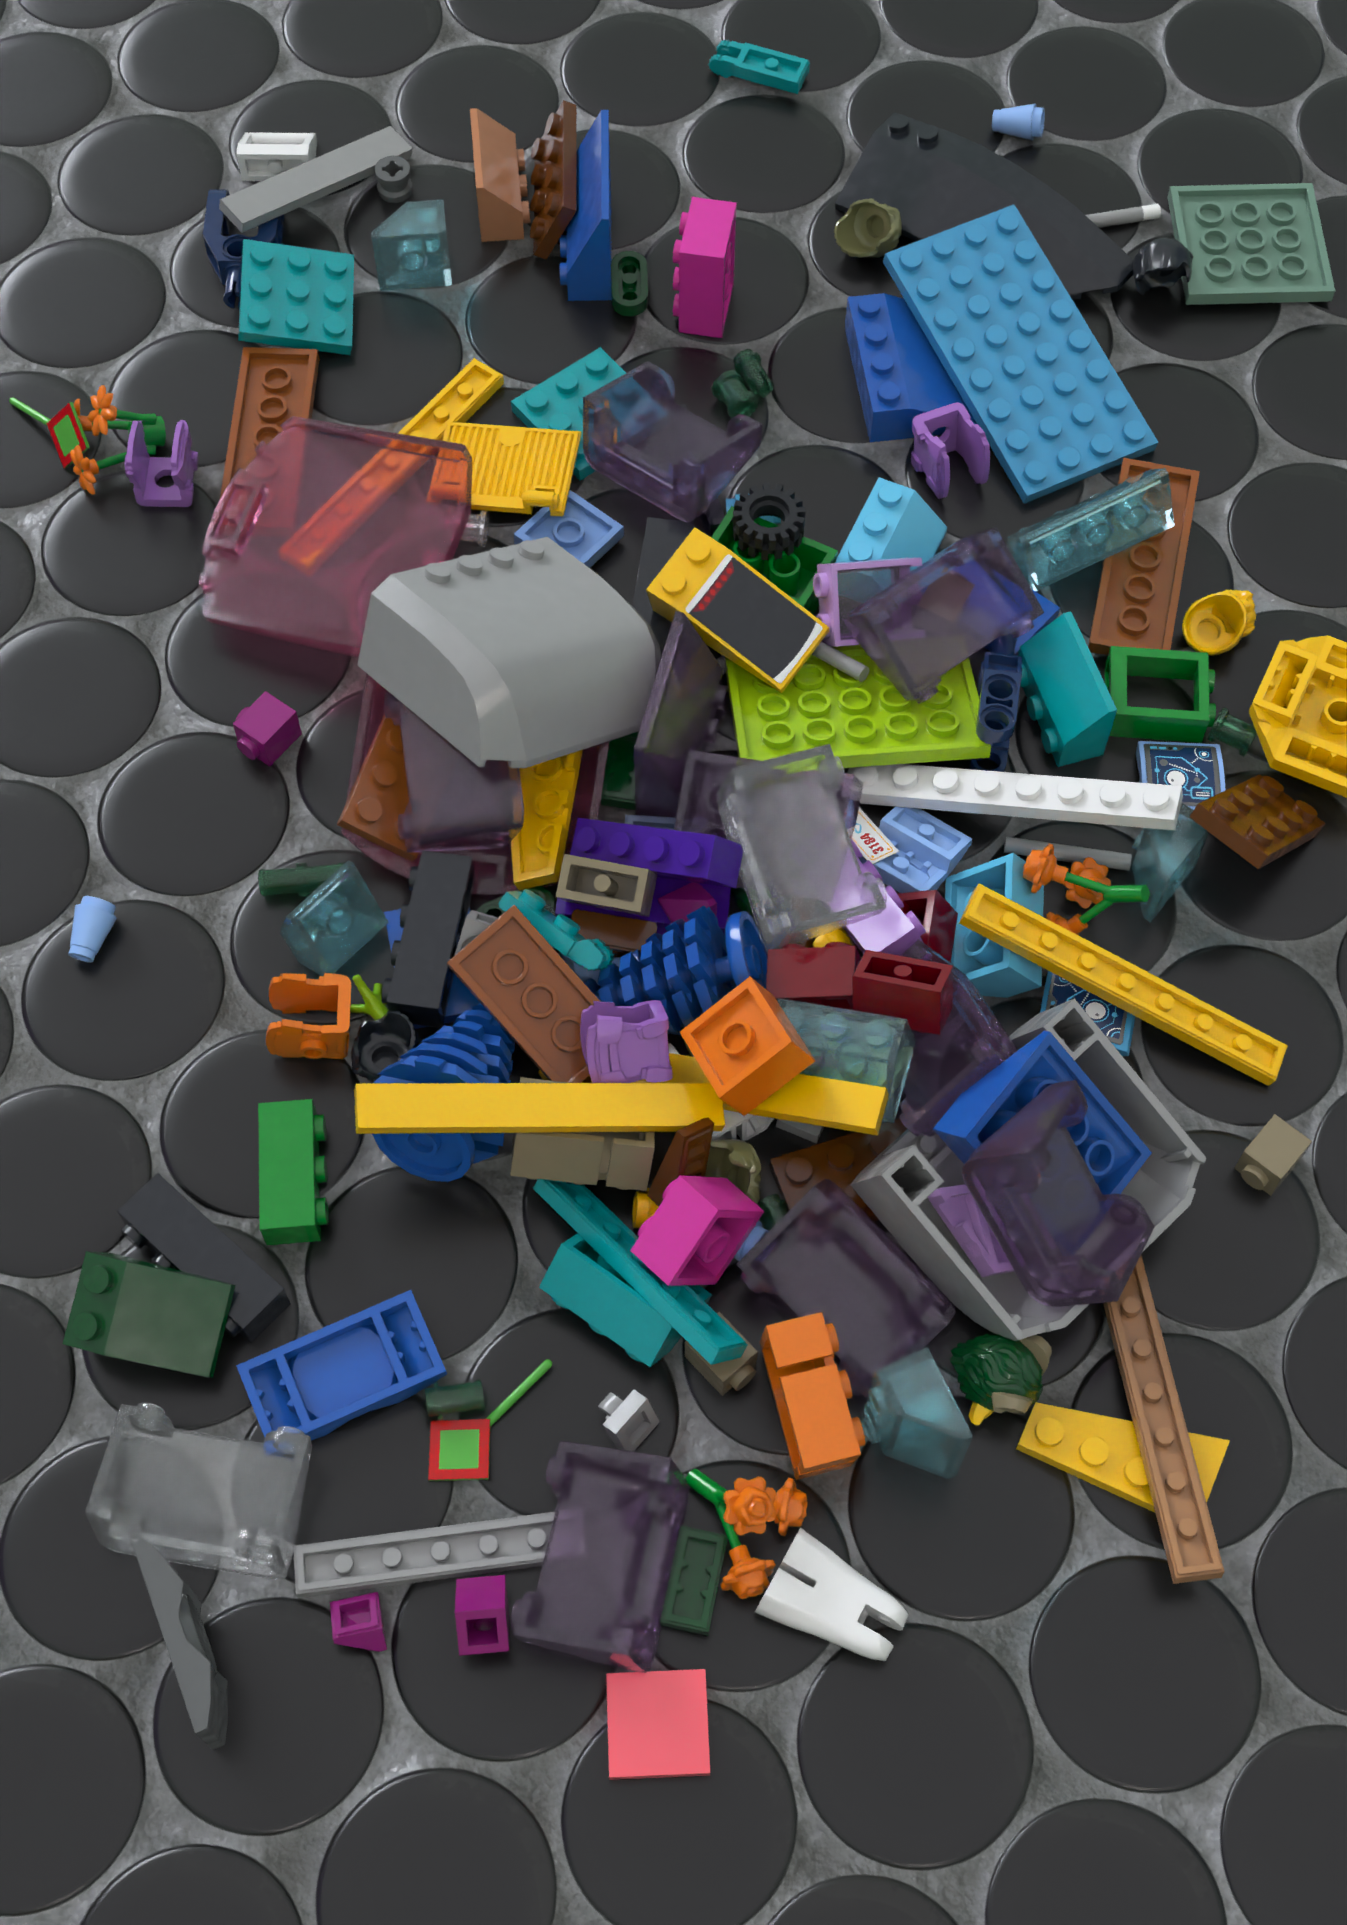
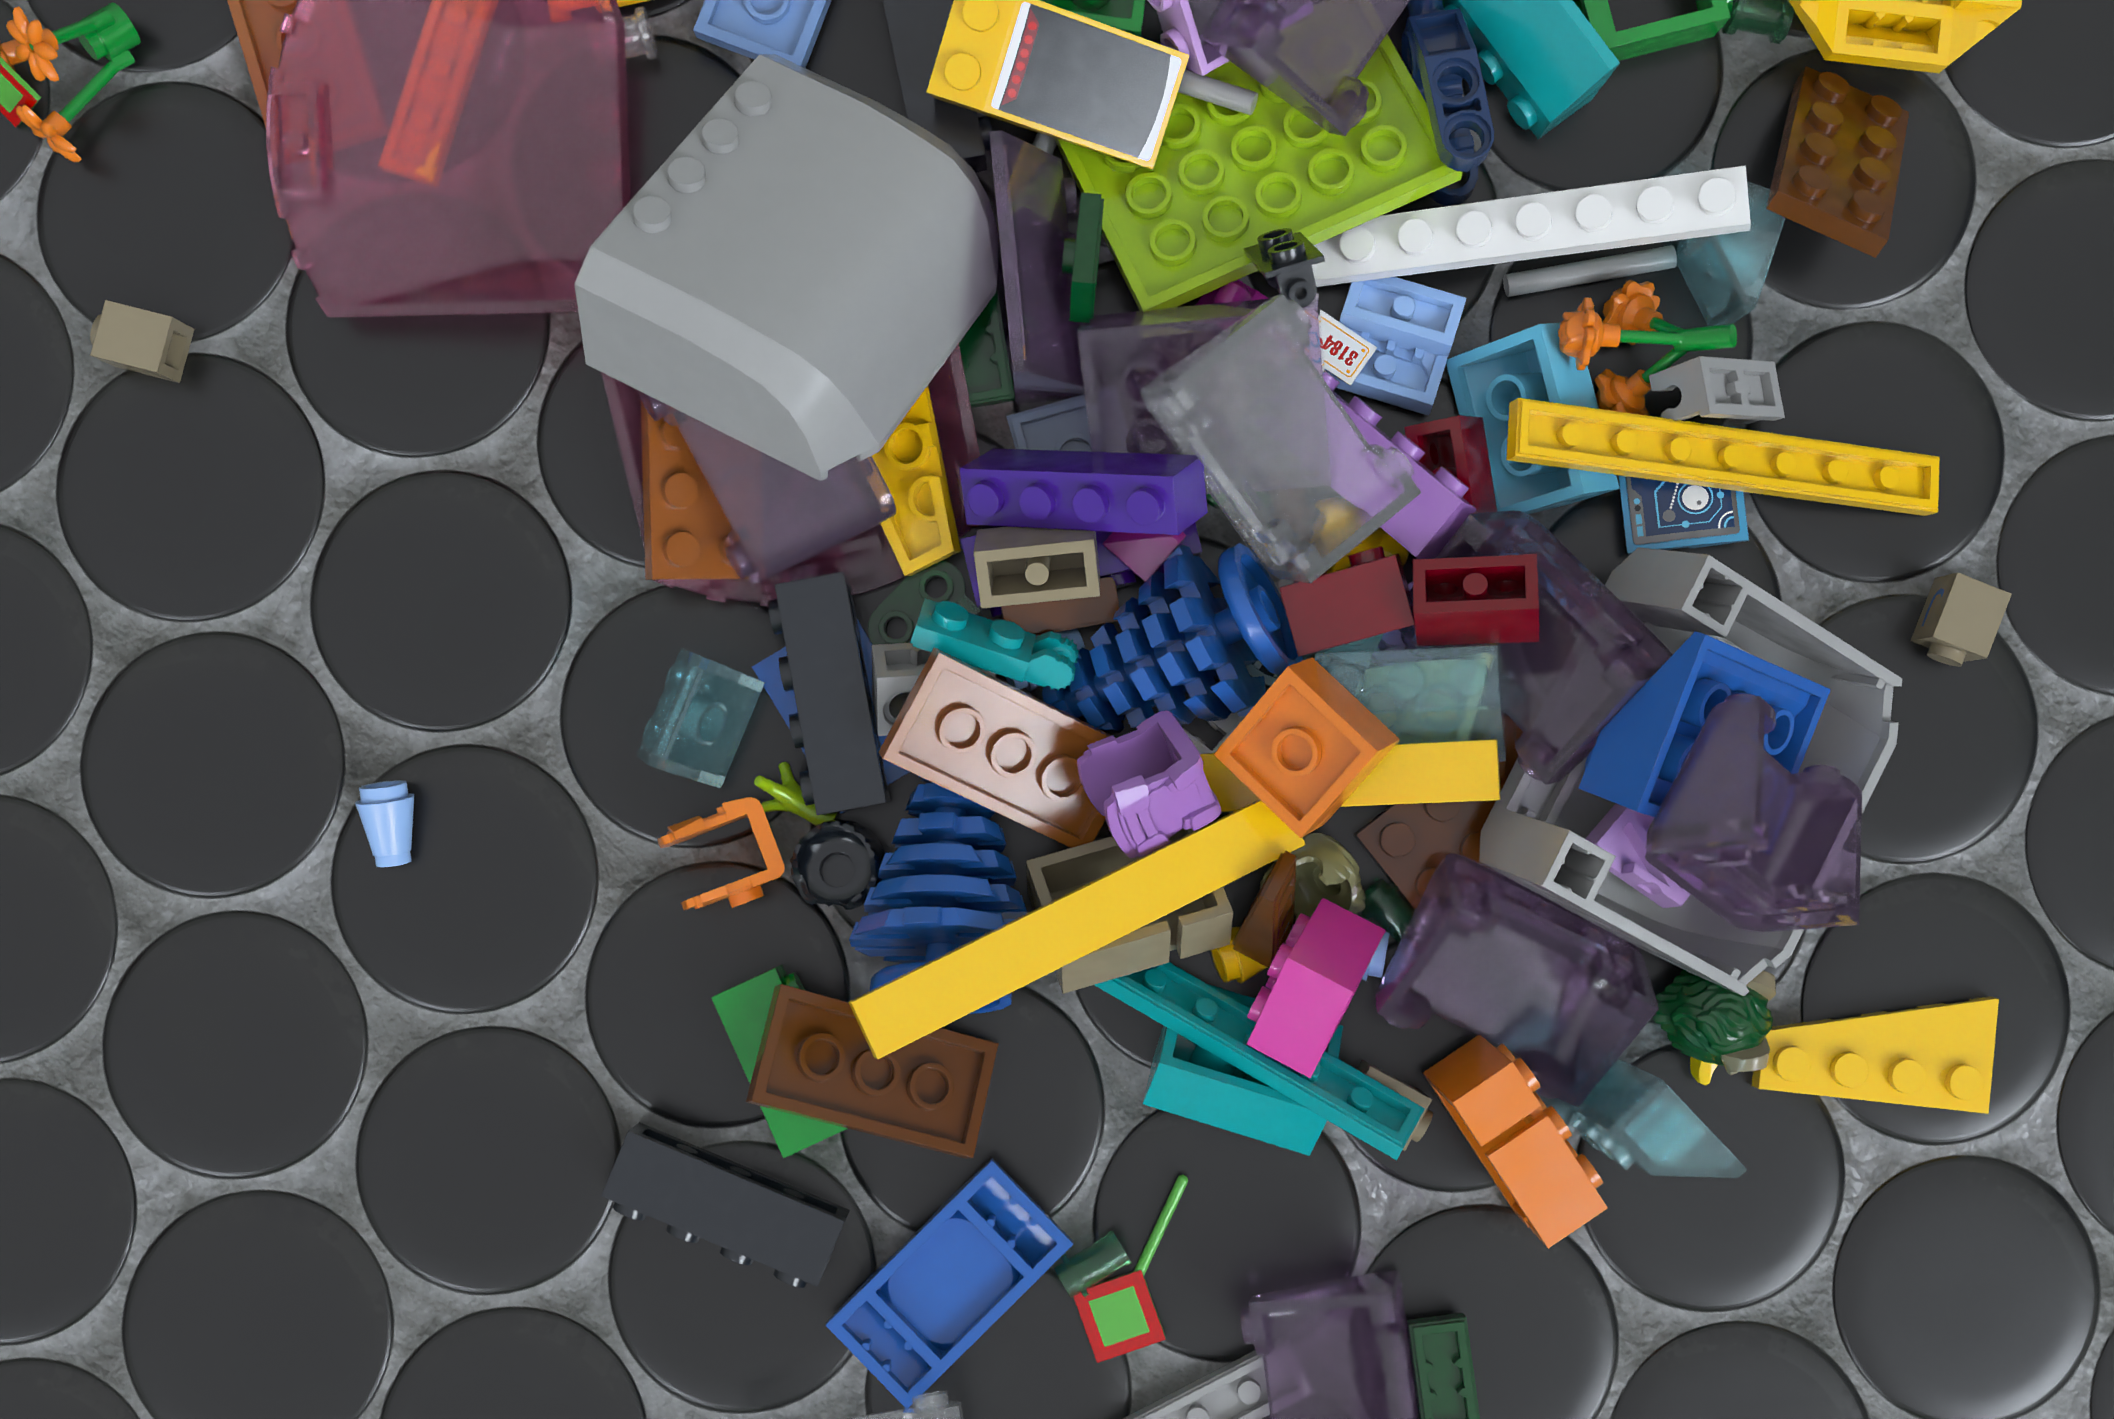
camera: 20 degrees left, 25 degrees up
(79, 599) = (141, 341): none -> dark tan brick
(147, 470) = (133, 95): medium lavender piece -> none
(148, 1314) = (695, 1309): dark green slope -> none
(266, 729) = (484, 455): magenta brick -> none
(295, 880) = (627, 656): clear green pin -> none
(351, 1191) = (823, 1070): none -> reddish brown plate
(628, 1420) = (1303, 1221): light grey tile -> none
(713, 717) = (1082, 257): none -> dark green plate
(749, 1509) = (1492, 1311): orange plant -> none
(830, 1599) = (1599, 1347): white piece -> none
(847, 747) = (1287, 263): none -> hinge
(1134, 935) = (1722, 389): none -> light grey hinge
(1162, 1434) = (1937, 1046): medium nougat tile -> none
(1189, 765) = (1708, 109): slope -> none

